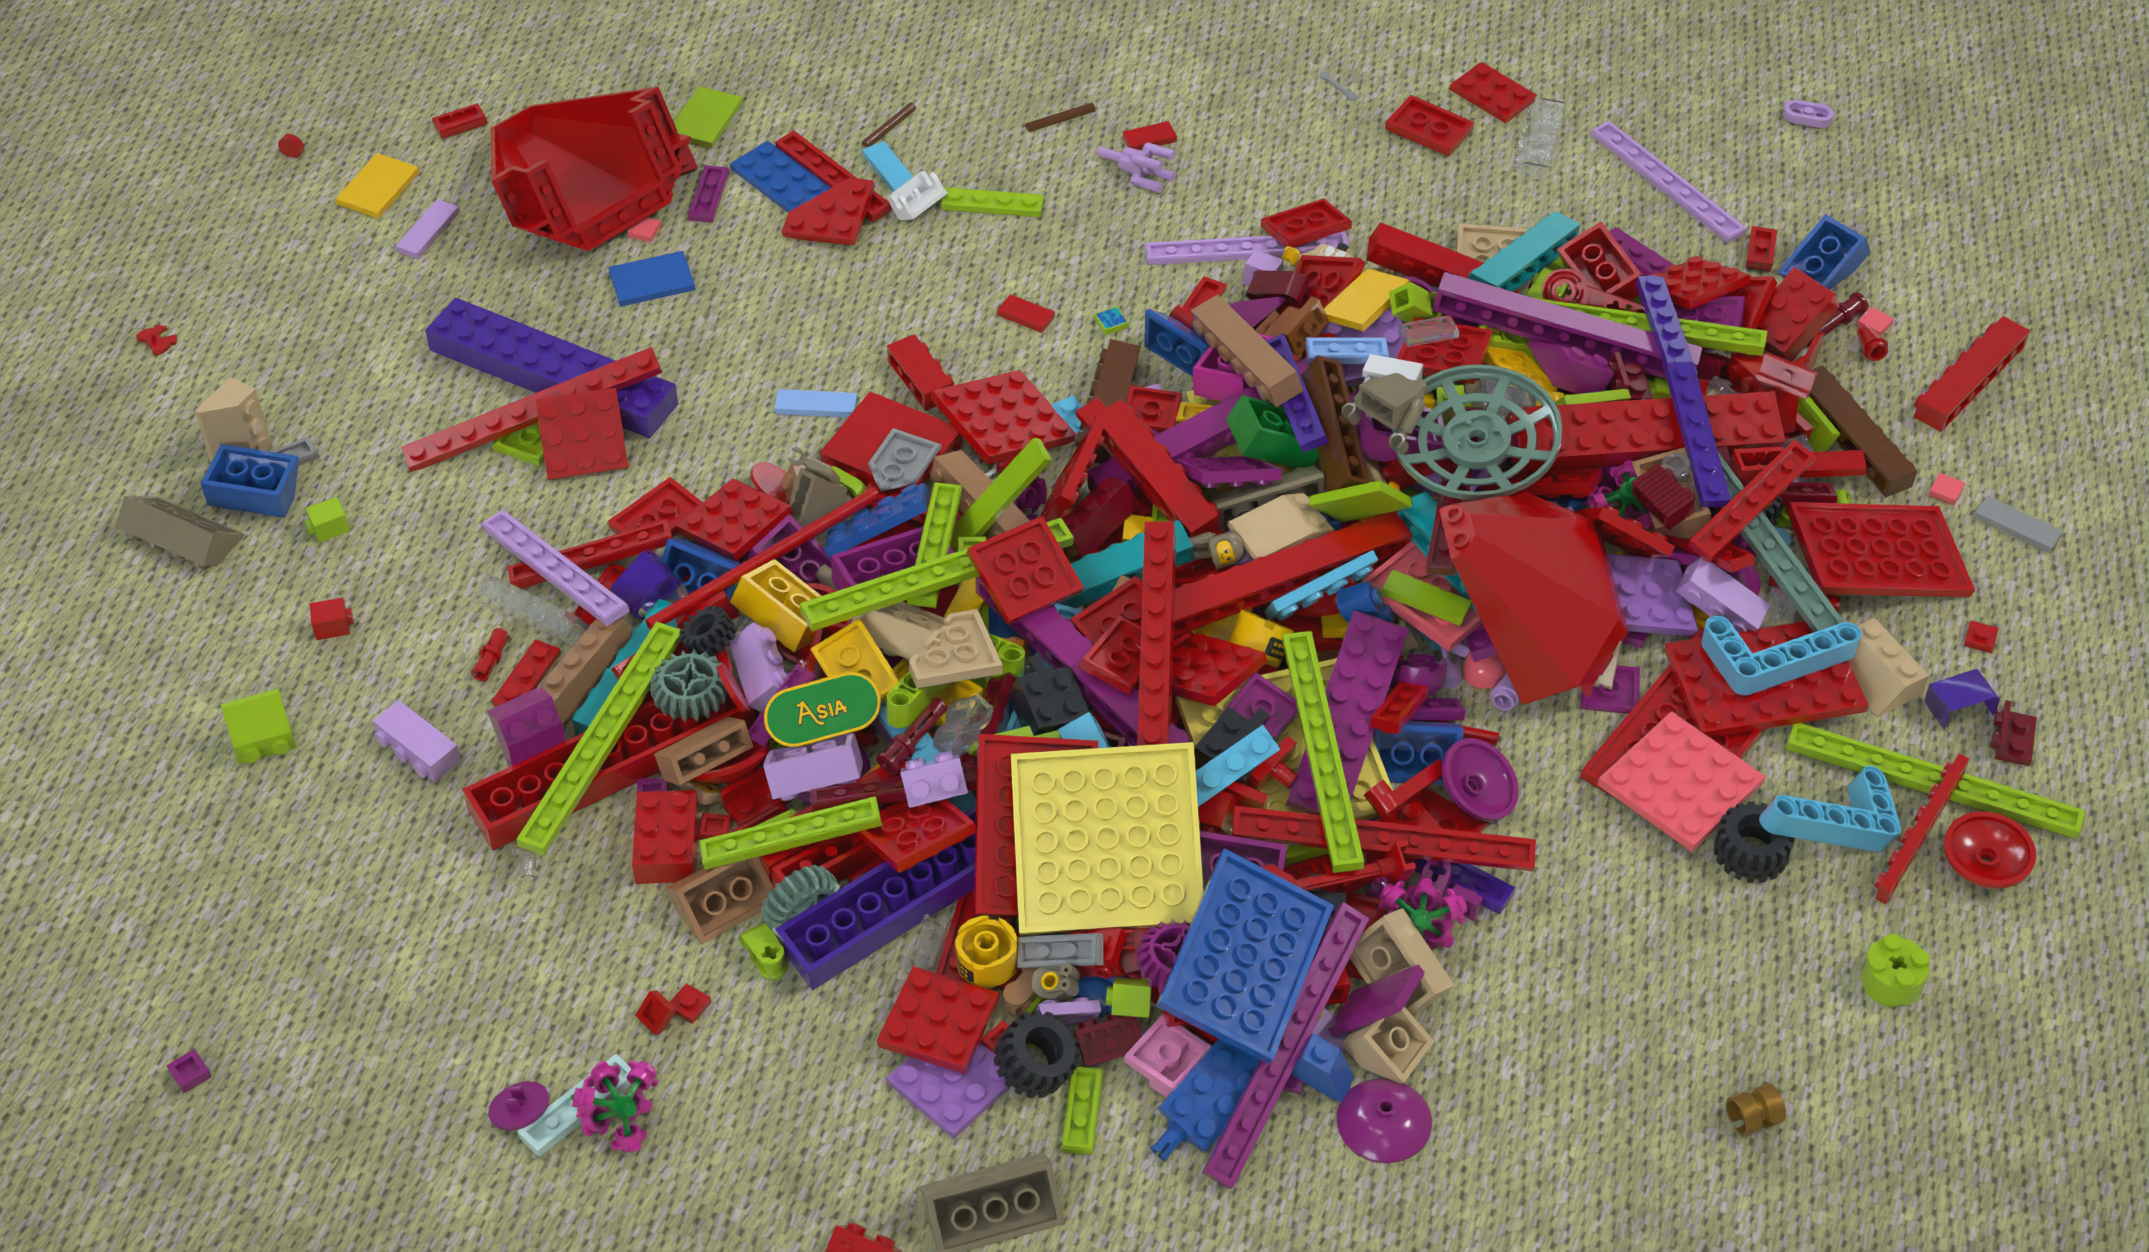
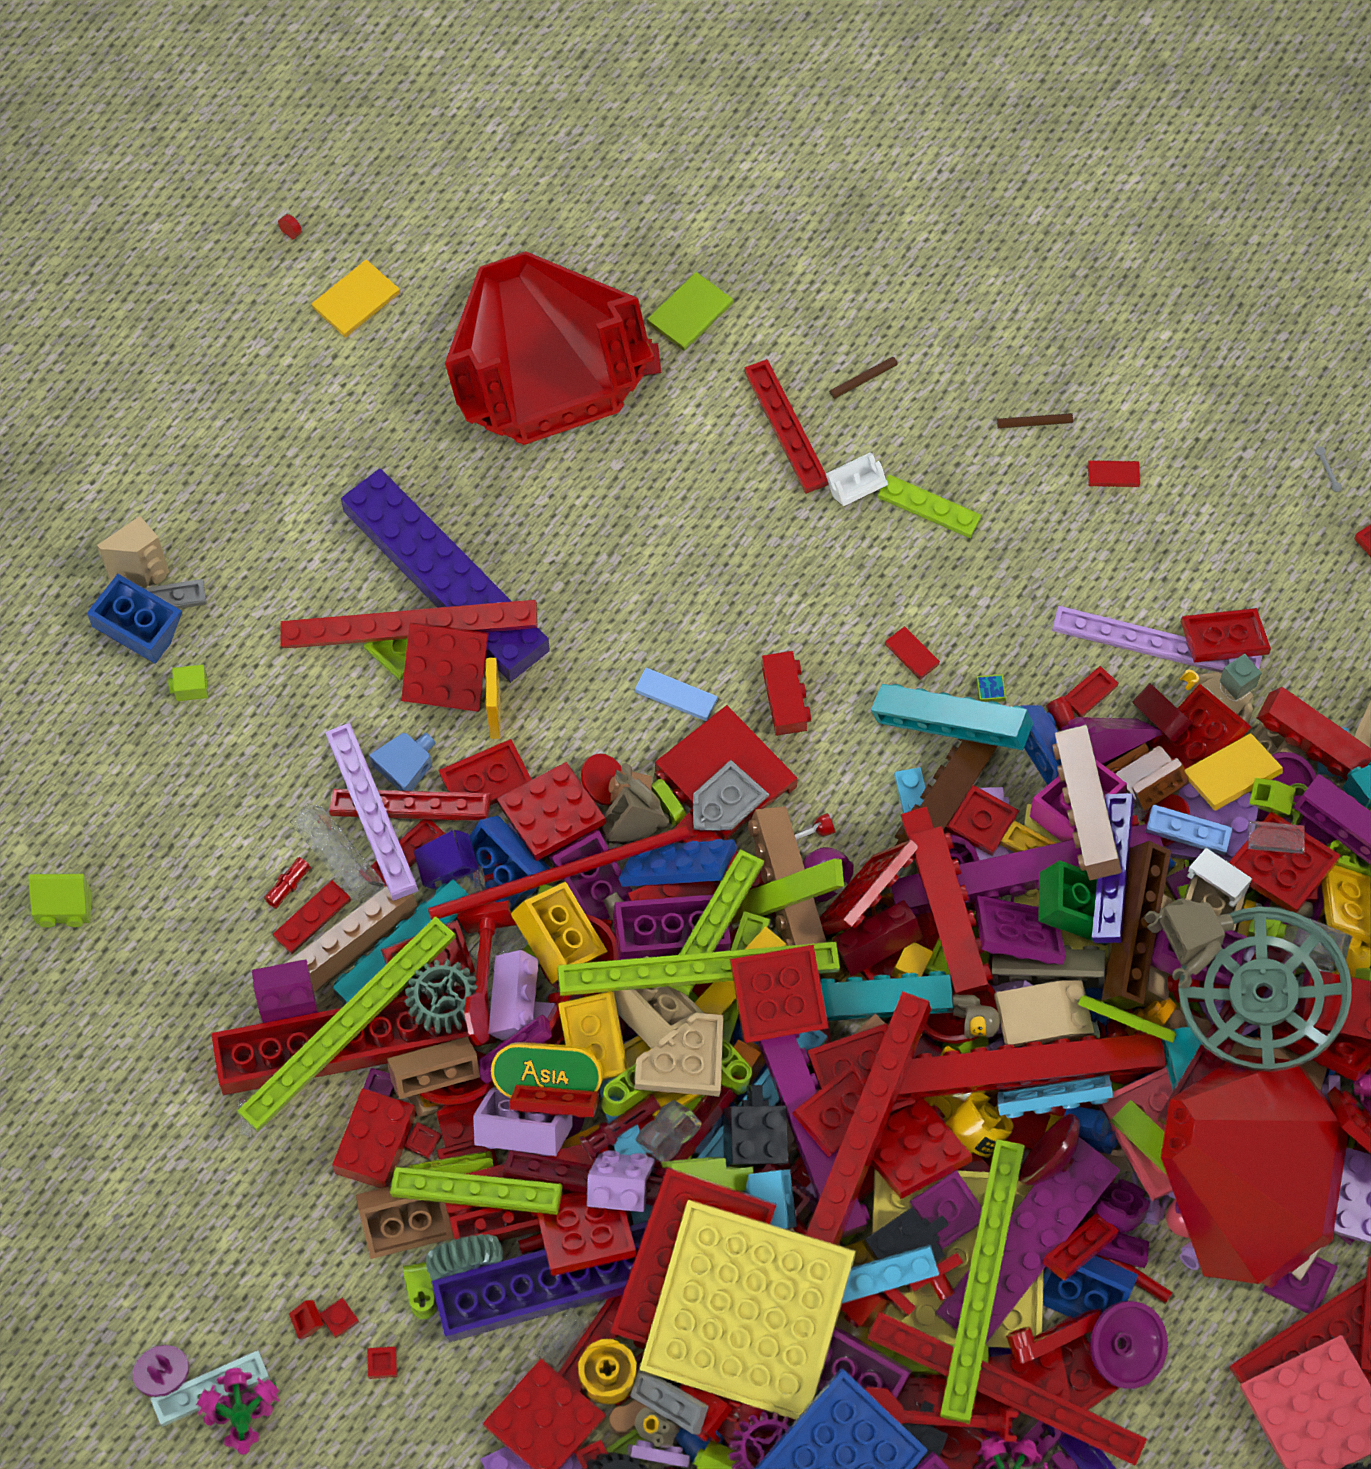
camera: 20 degrees right, 15 degrees up
(153, 339) = (98, 413): red piece -> none
(176, 530) = (57, 649): dark tan slope -> none
(330, 618) = (159, 796): red brick -> none
(416, 741) = (191, 958): lavender brick -> none
(427, 229) = (385, 366): lavender tile -> none
(459, 121) = (455, 243): red plate -> none
(569, 522) = (404, 760): none -> medium blue torso
(641, 440) = (493, 698): none -> yellow tile
(644, 229) = (587, 433): coral tile -> none
(651, 278) = (573, 494): blue tile -> none
(708, 194) = (661, 407): magenta tile -> none
(708, 631) = (468, 937): black tyre -> none
(750, 1026) = (382, 1362): none -> red plate
(778, 176) = (736, 411): blue plate -> none
(833, 215) = (768, 475): red plate -> none
(840, 729) = (554, 1101): none -> red plate
(887, 165) = (844, 430): medium azure tile -> none
(1002, 415) = (843, 774): red plate -> none
(1087, 338) = (952, 716): none -> brick
(1141, 164) = (1091, 509): lavender plant -> none
(1260, 261) = (1160, 676): lavender panel -> none
(1336, 238) = (1240, 676): none -> sand green brick
(1341, 624) = (1051, 1152): none -> dark red dish

